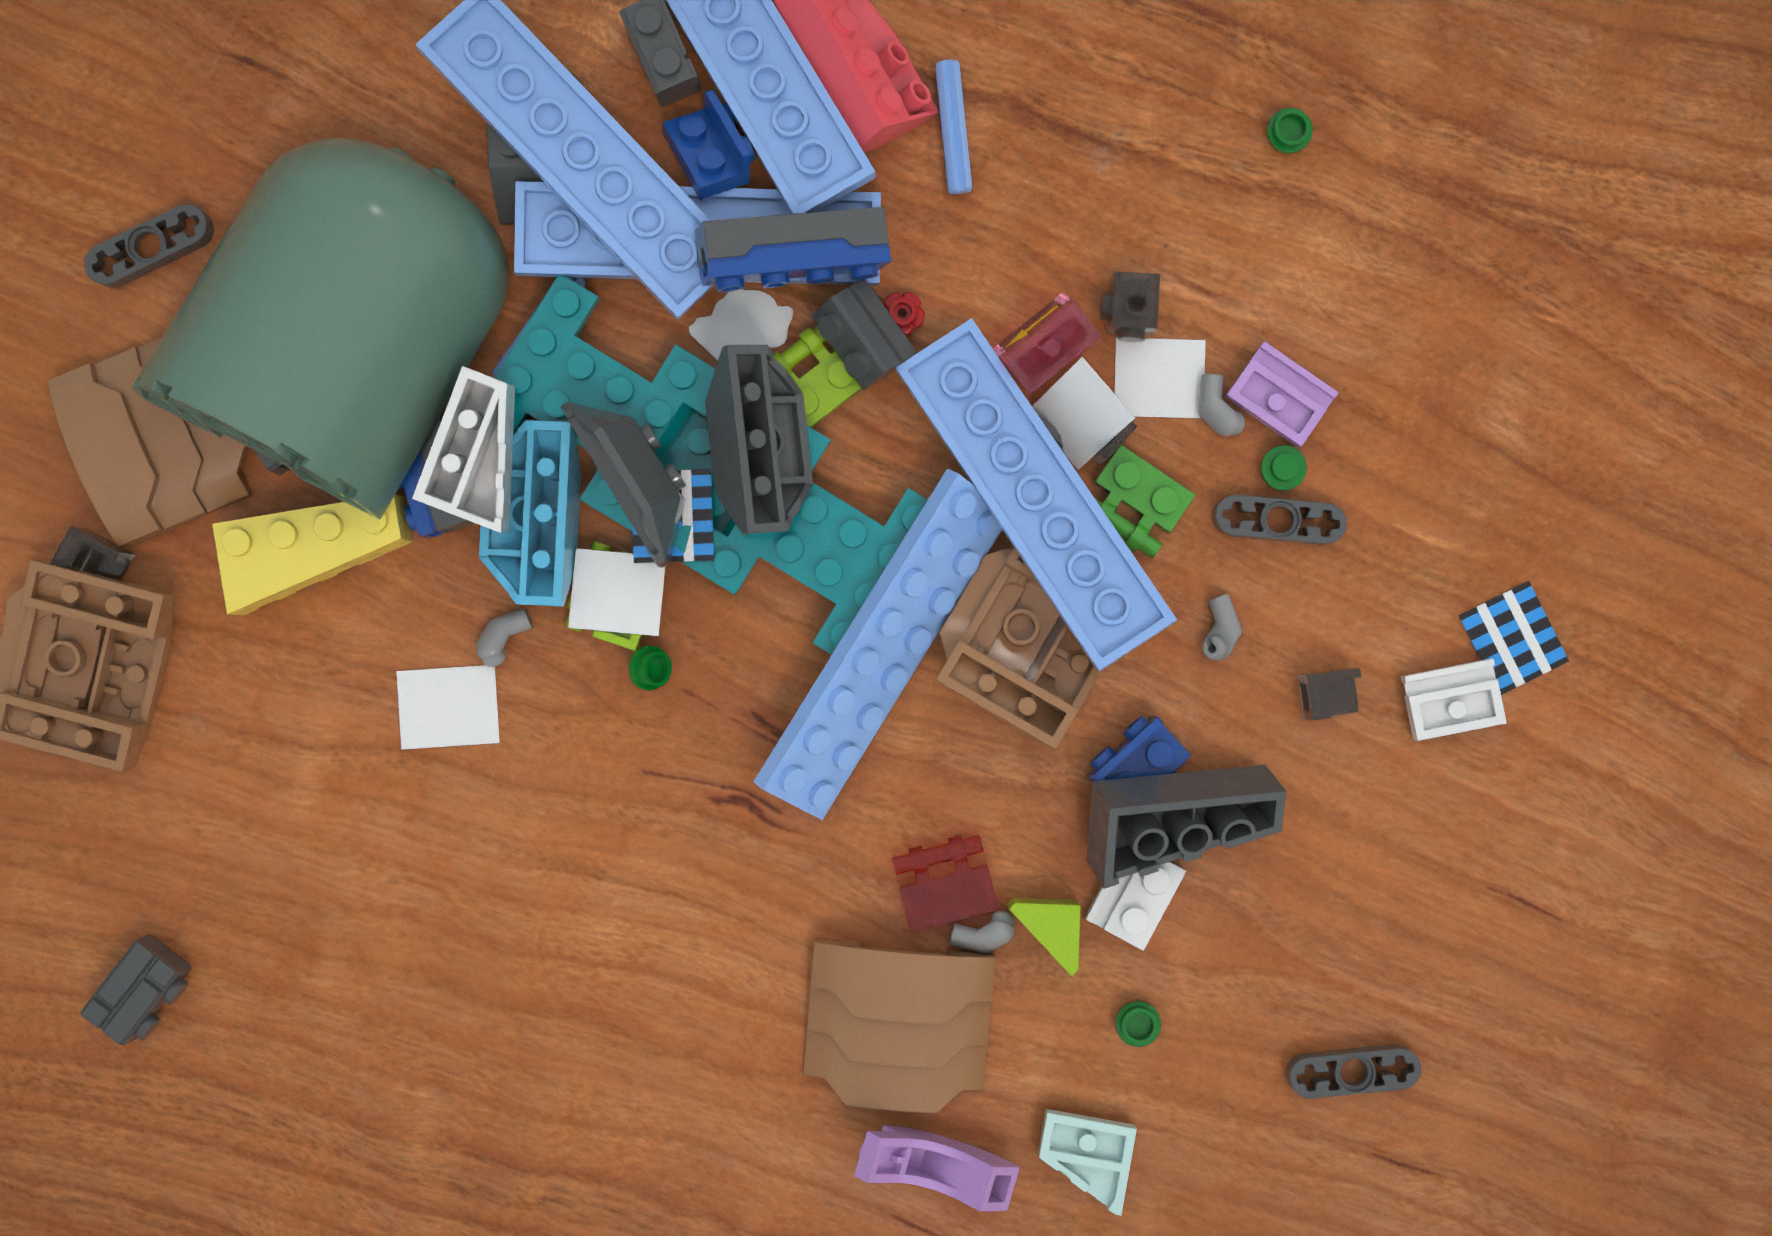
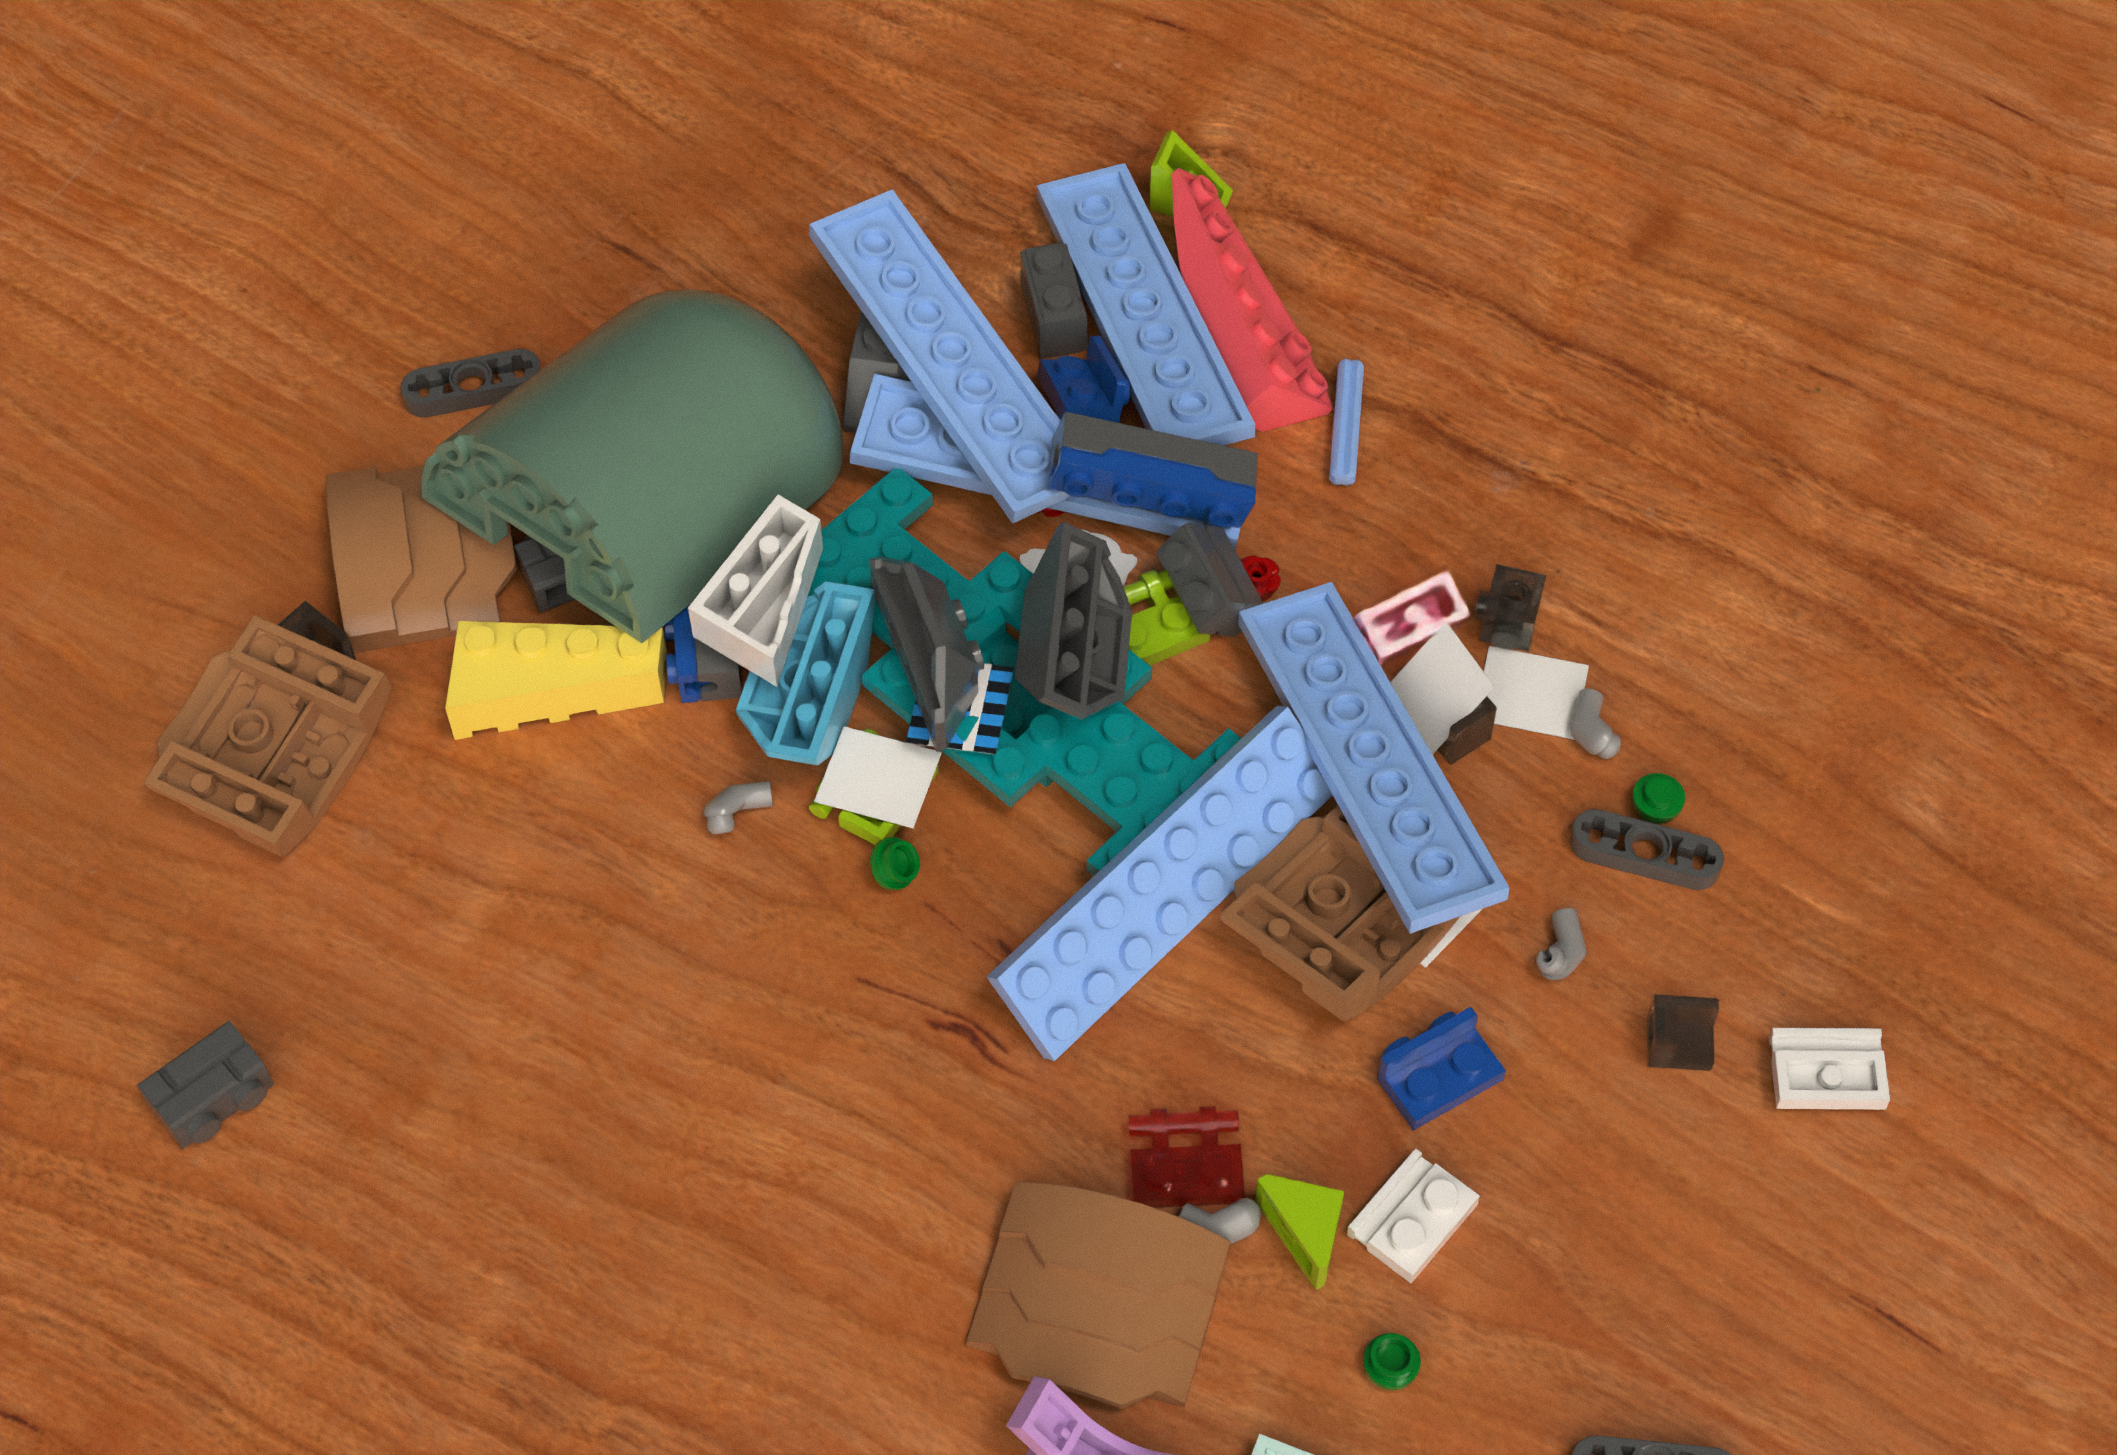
camera: 10 degrees right, 30 degrees down
(447, 707) = (653, 870): white sticker -> none
(1145, 491) = (1498, 796): bright green plate -> none
(1178, 816) = (1457, 1113): dark grey wedge -> none
(1281, 394) = (1666, 724): lavender plate -> none
(1289, 130) = (1710, 483): green plate -> none
(1515, 635) = (1915, 1025): sticker -> none

